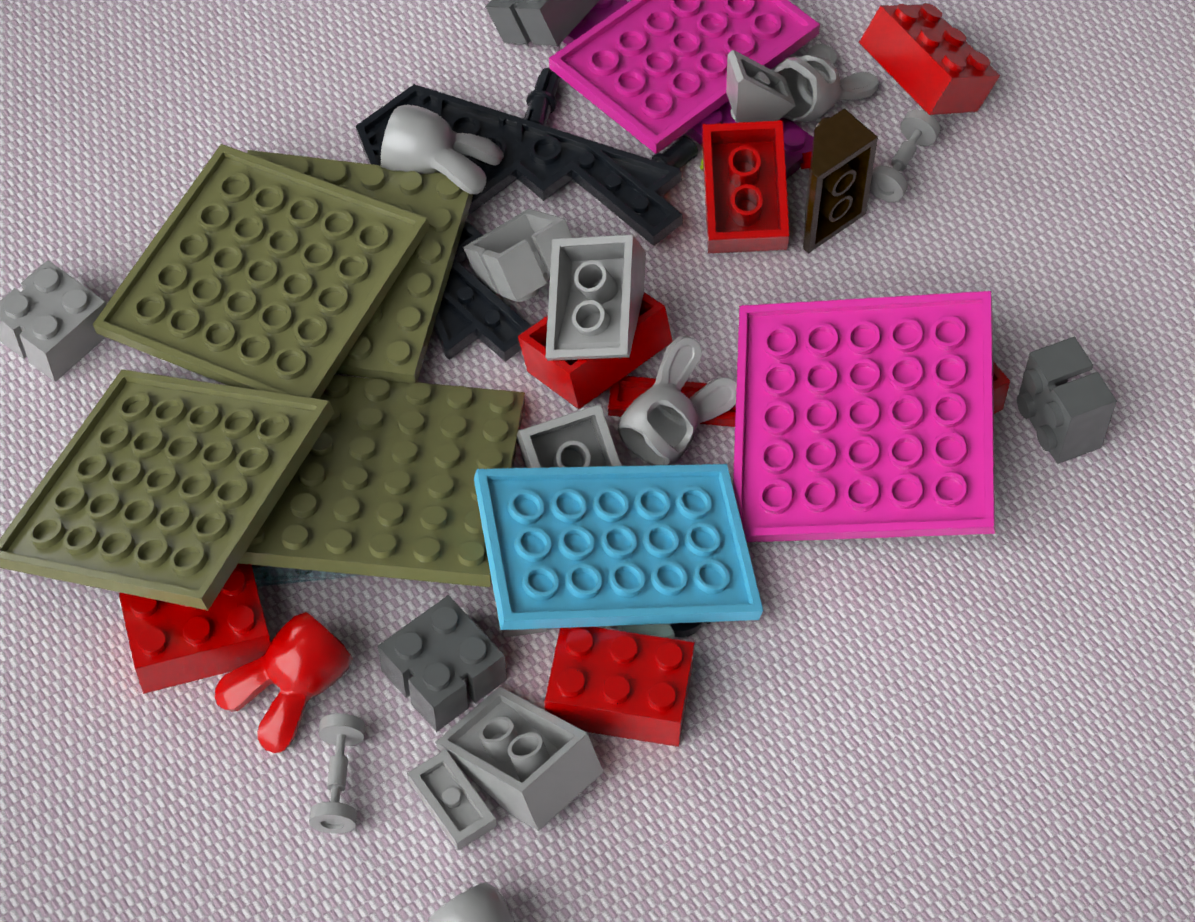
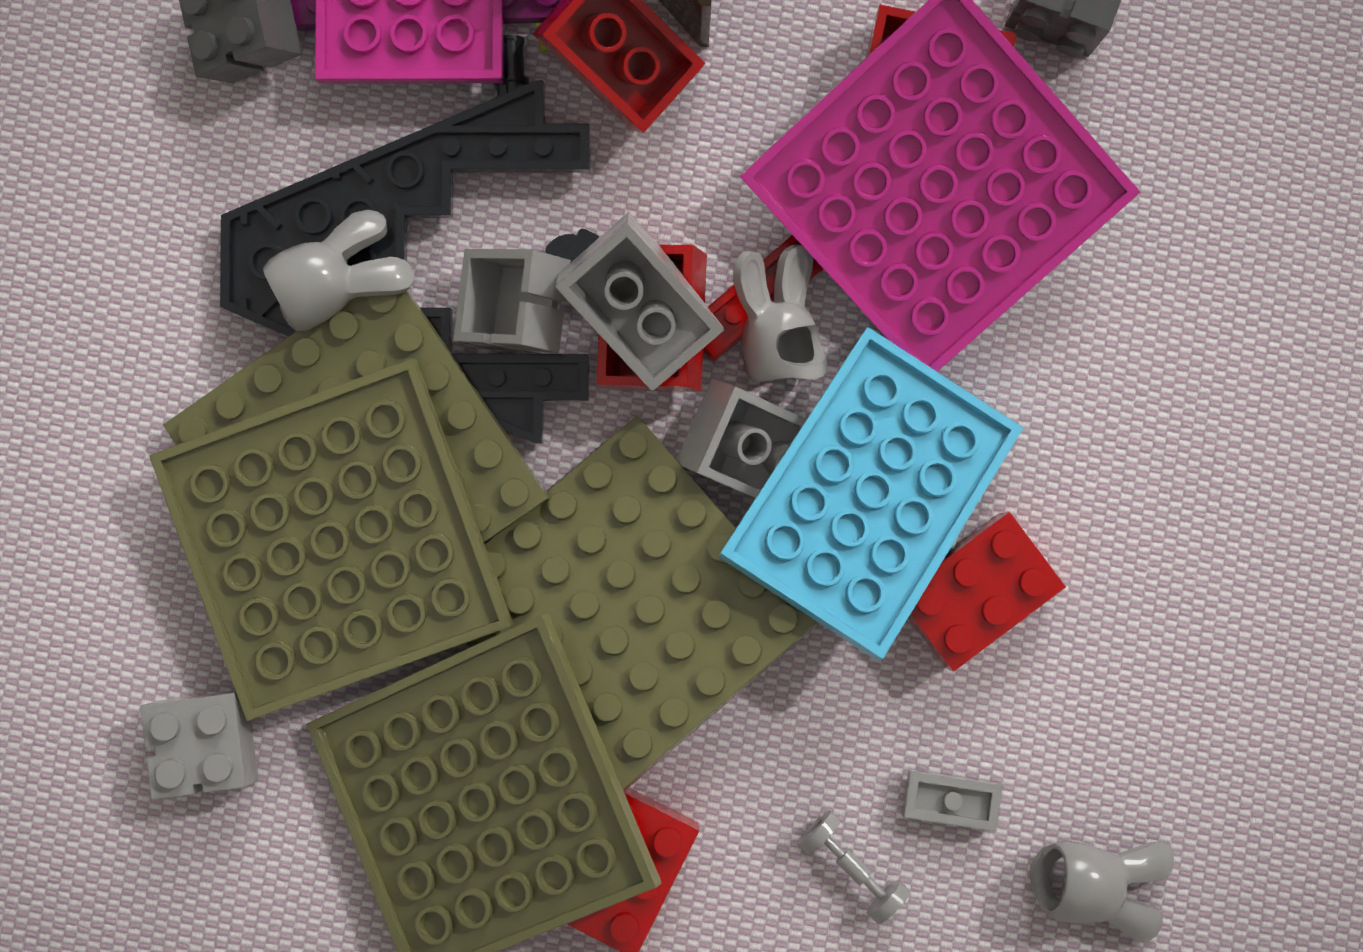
camera: 50 degrees left, 30 degrees up
(302, 663) = (735, 826): red piece -> none
(440, 653) = (834, 708): dark grey piece -> none
(522, 756) = (963, 719): light grey slope -> none
(542, 100) = (340, 118): black axle -> none

